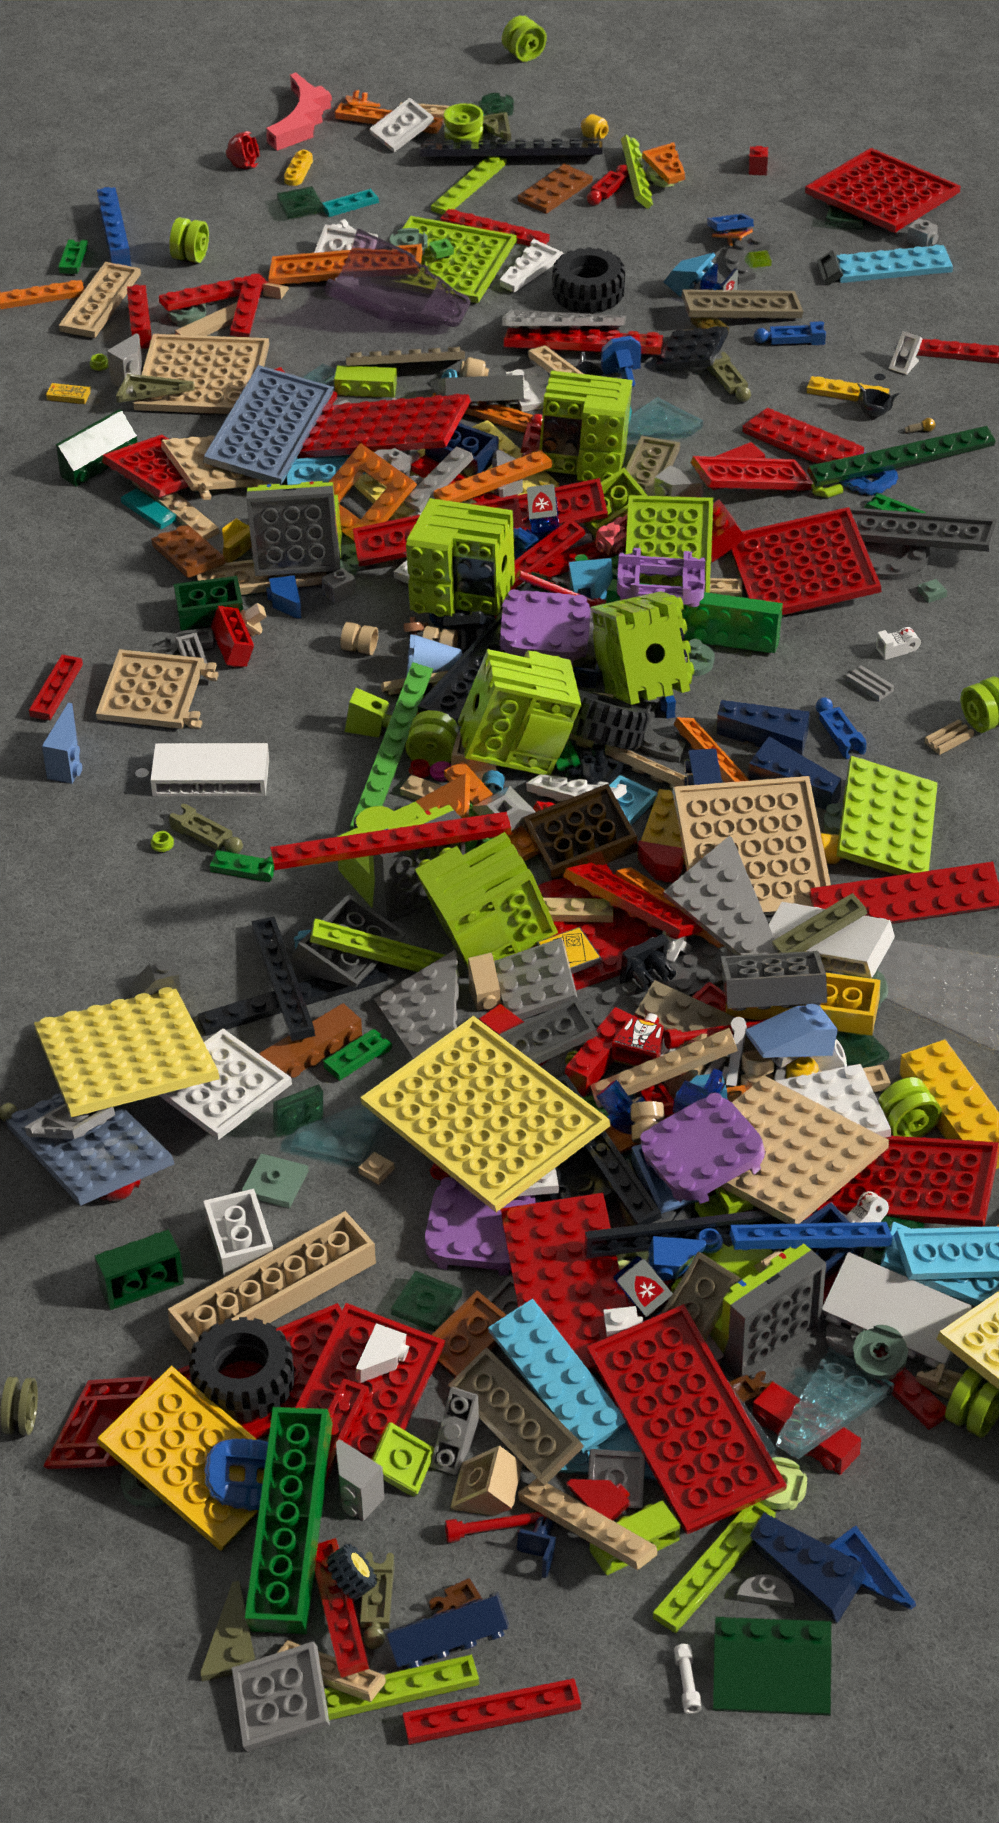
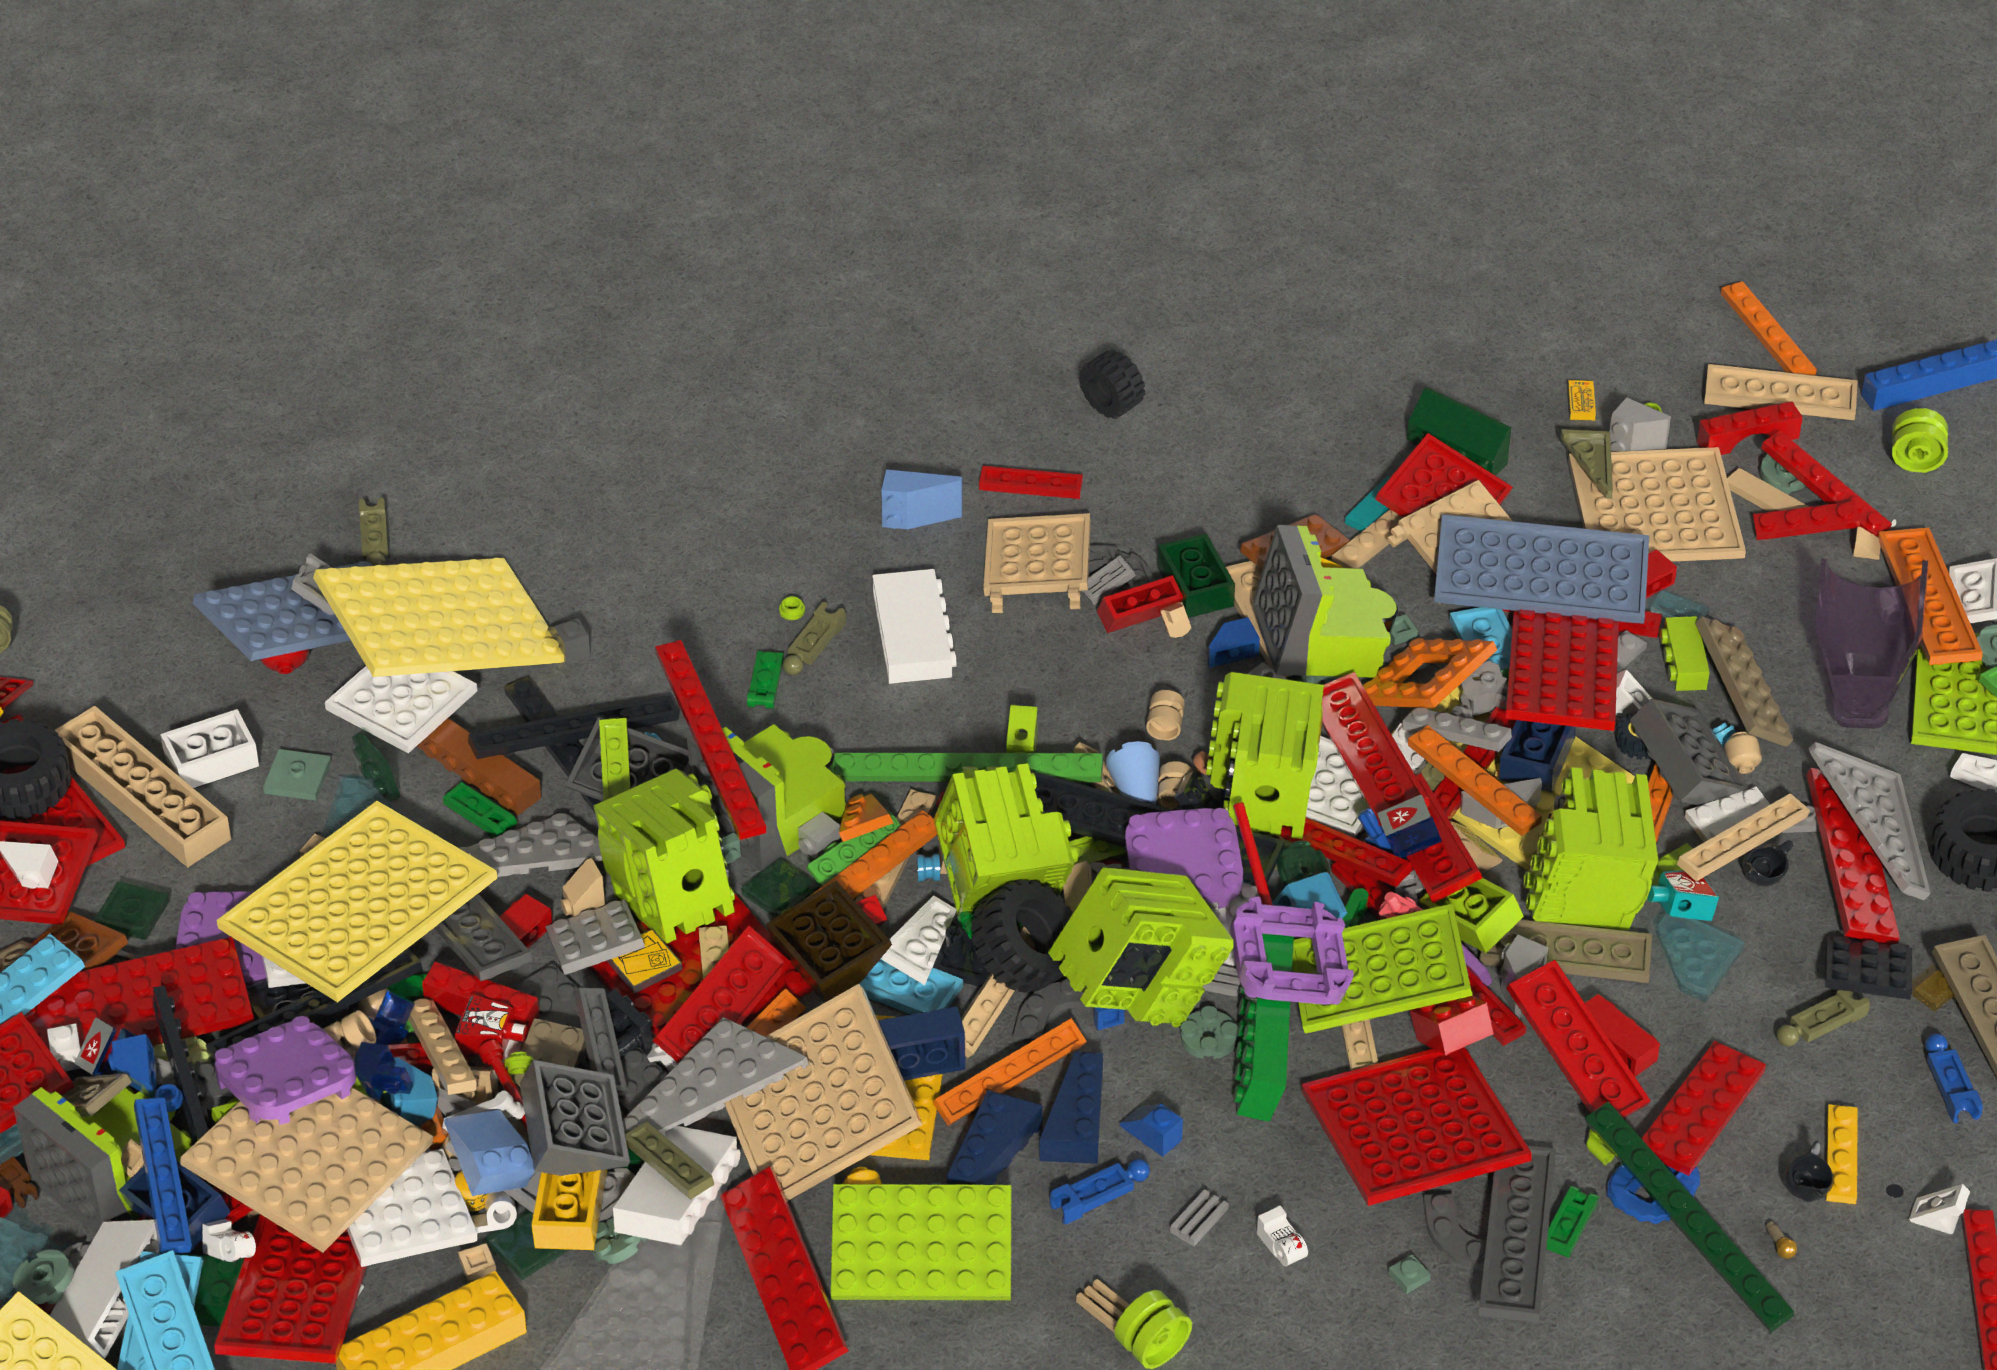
camera: 80 degrees right, 0 degrees up
(73, 256) = (1866, 353): green plate -> none
(139, 1269) = (155, 682): dark green brick -> none
(506, 801) = (849, 864): light grey slope -> none
(621, 357) = (1810, 893): blue piece -> none
(673, 971) = (600, 1034): none -> dark grey plate
(689, 1020) = (518, 1063): none -> lime plate
(785, 690) = (1155, 1127): none -> blue slope
(910, 1108) = (409, 1281): lime wheel -> none

